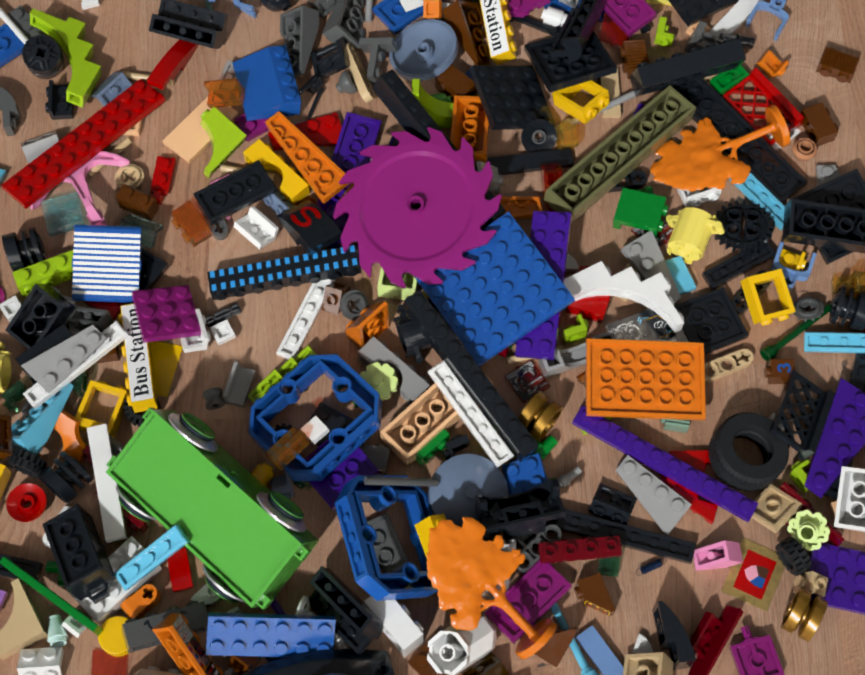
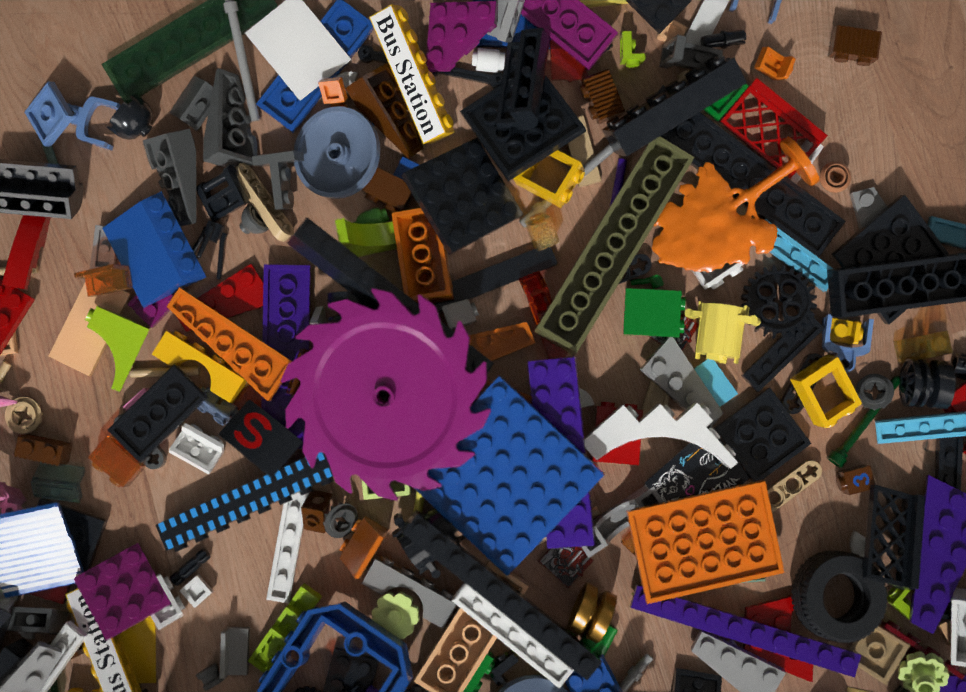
camera: 10 degrees left, 20 degrees up
(162, 177) = (64, 406): red hinge -> none
(545, 142) = (509, 246): black dish -> none
(574, 333) = (607, 489): lime bracket -> none
(819, 124) = (846, 136): reddish brown brick -> none

